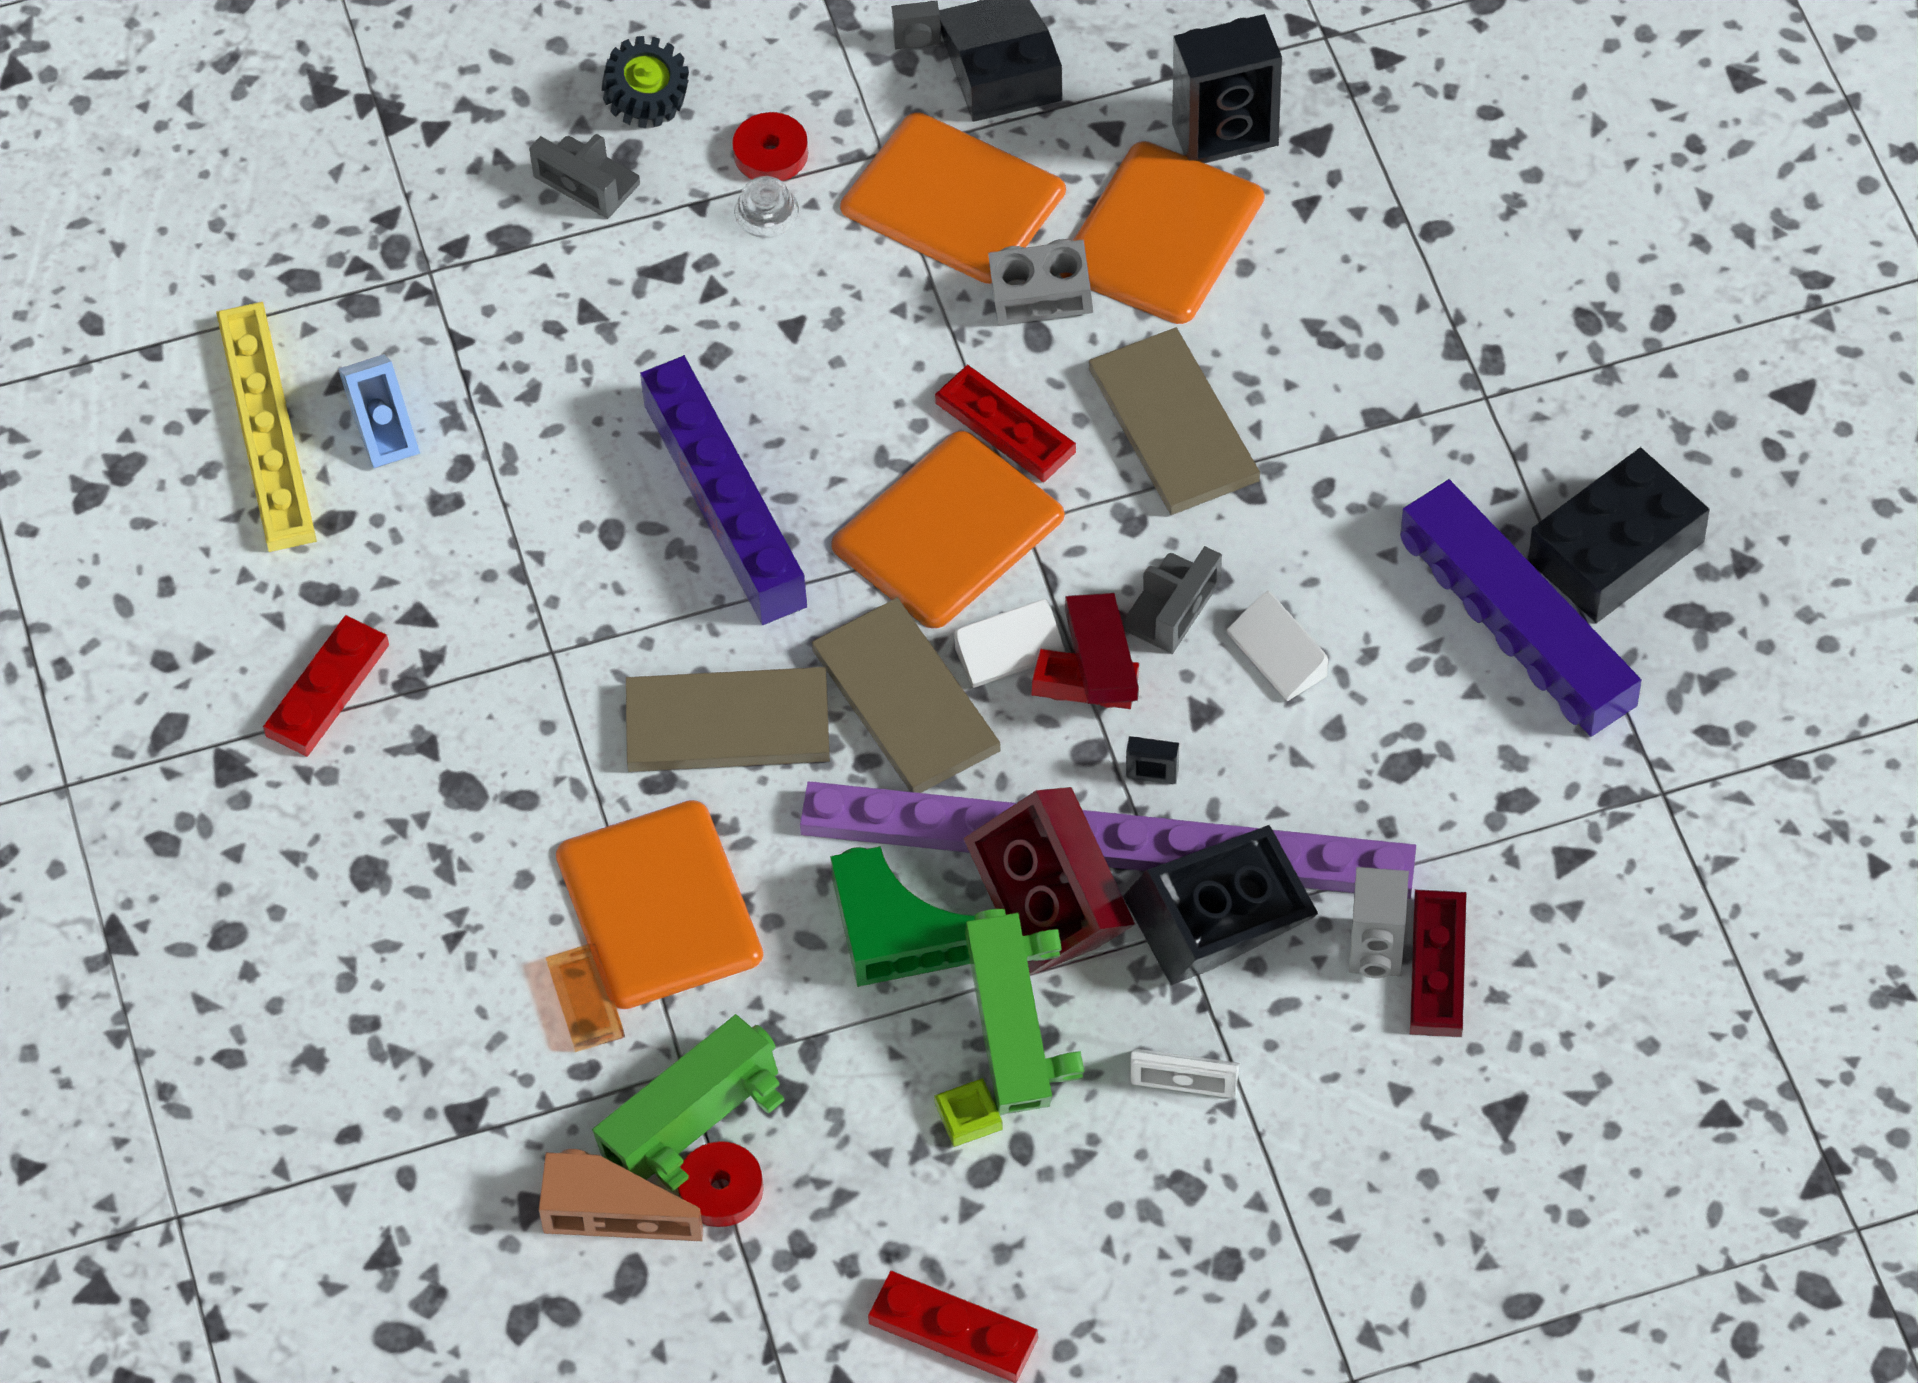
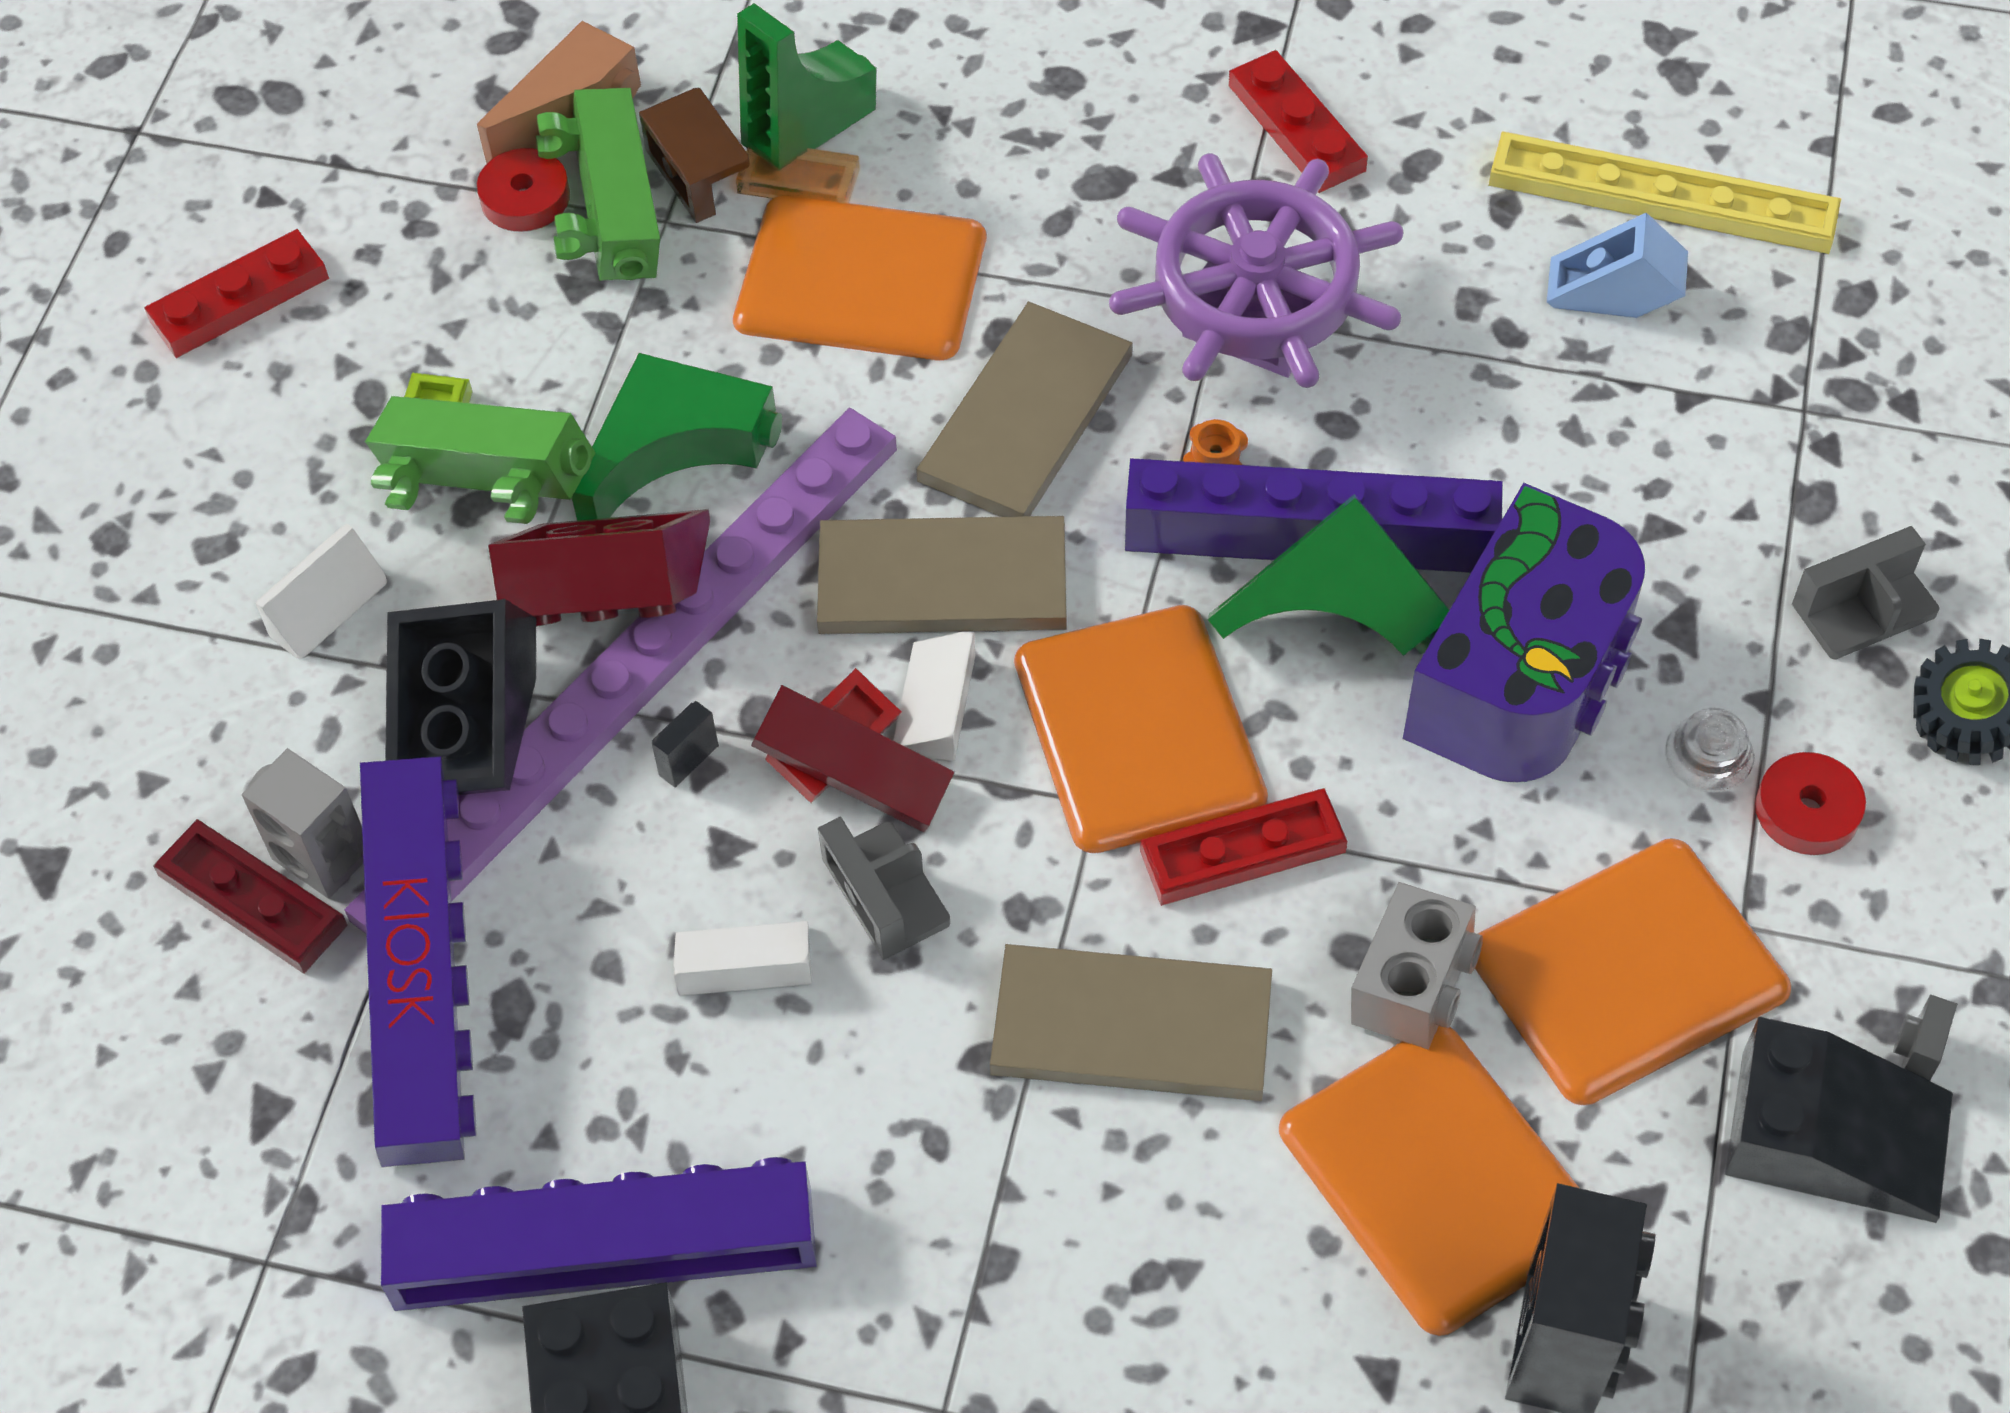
camera: 120 degrees right, 0 degrees up
(526, 1001) = (793, 97): none -> green arch
(547, 588) = (1250, 292): none -> medium lavender piece
(620, 1057) = (692, 148): none -> reddish brown panel
(690, 572) = (1216, 436): none -> orange plate
(761, 309) = (1530, 642): none -> dark purple brick
(779, 438) = (1347, 570): none -> green arch
(1425, 800) = (413, 964): none -> dark purple brick

